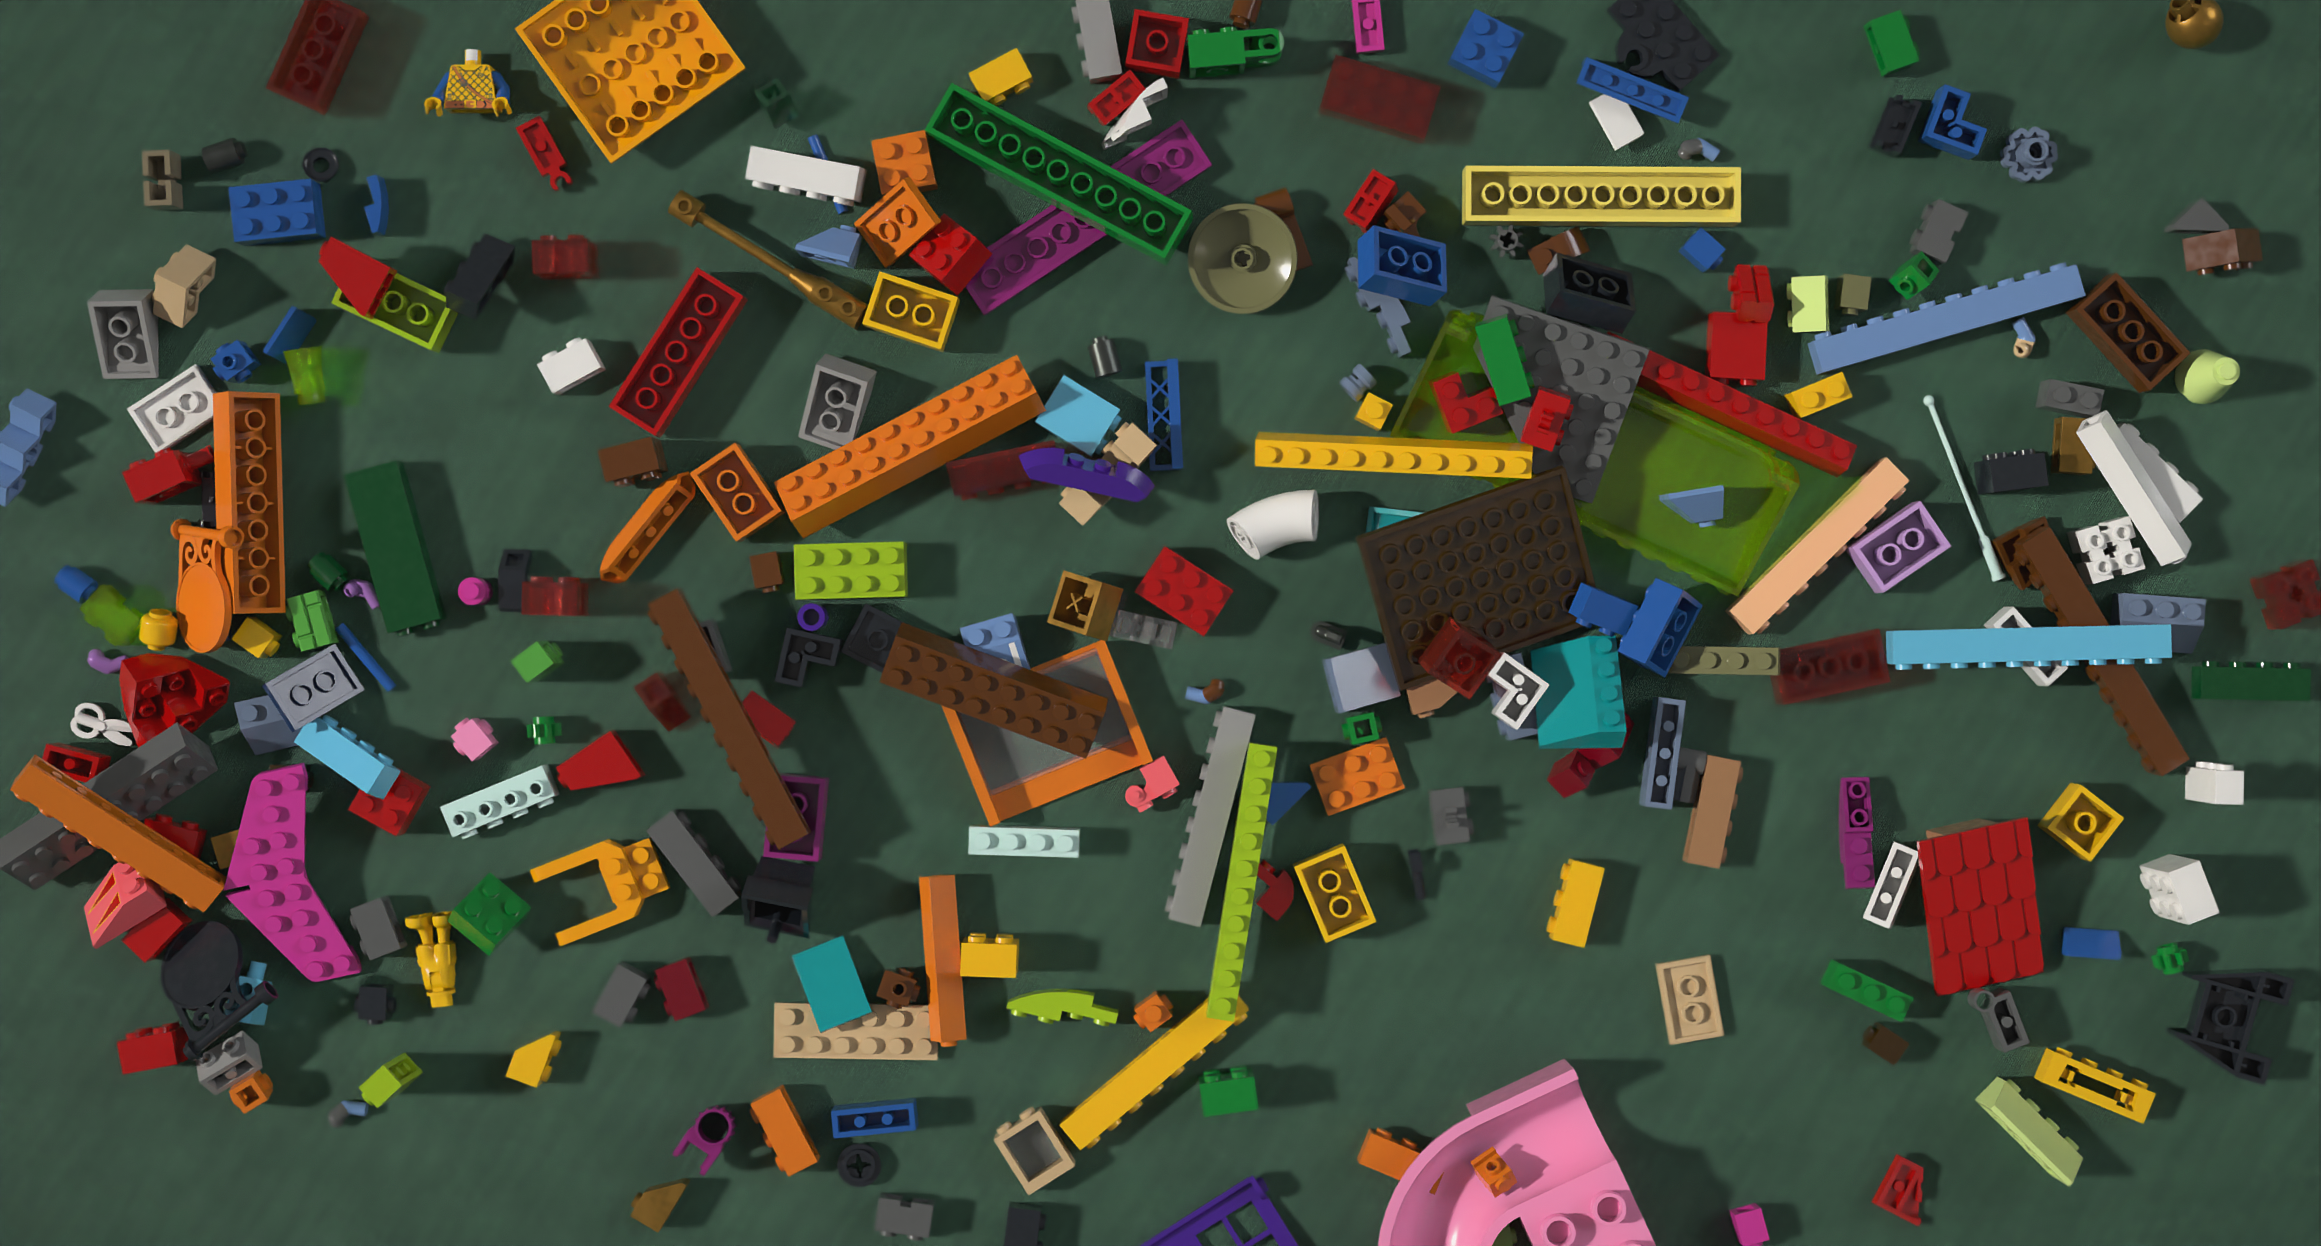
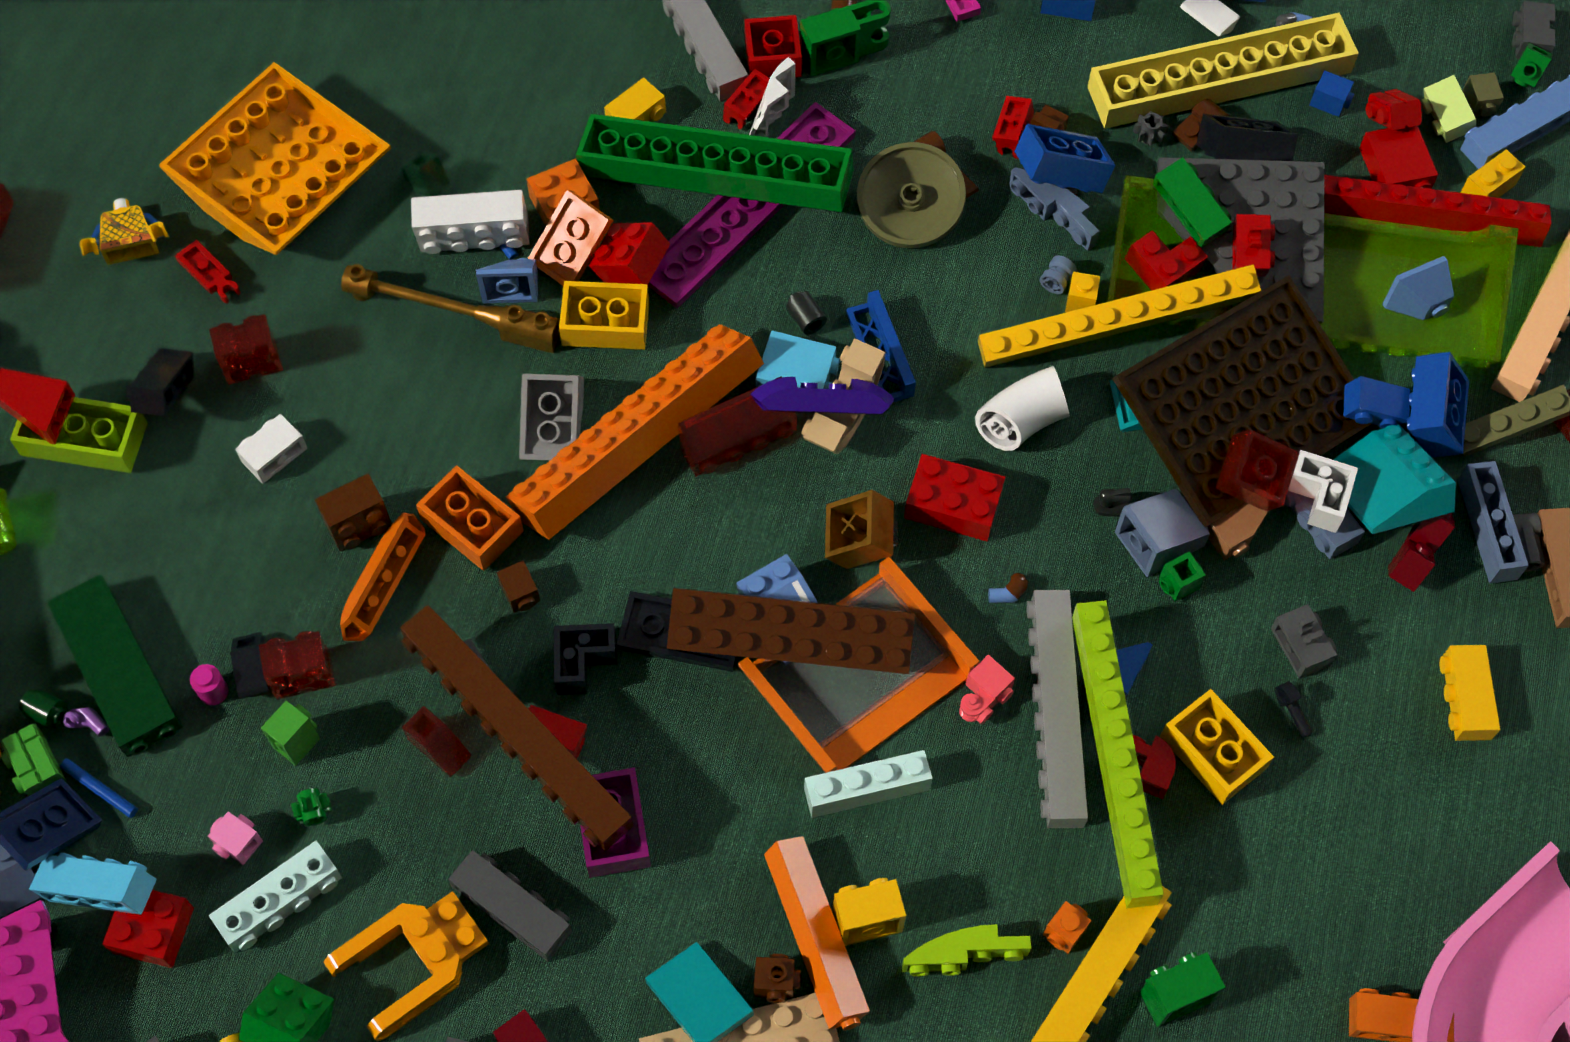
camera: 25 degrees left, 25 degrees down
(379, 211) = (46, 355): blue slope -> none
(600, 763) = (380, 829): red slope -> none
(678, 352) = (379, 404): red brick -> none
(779, 898) = (616, 911): black piece -> none
(812, 617) = (578, 611): dark purple brick -> none
(850, 570) = (606, 564): lime brick -> none
(1143, 629) = (929, 543): clear brick -> none
(1356, 776) = (1193, 631): orange plate -> none
(1379, 99) = (991, 46): clear red brick -> none
(1493, 1172) = (1510, 990): orange brick -> none

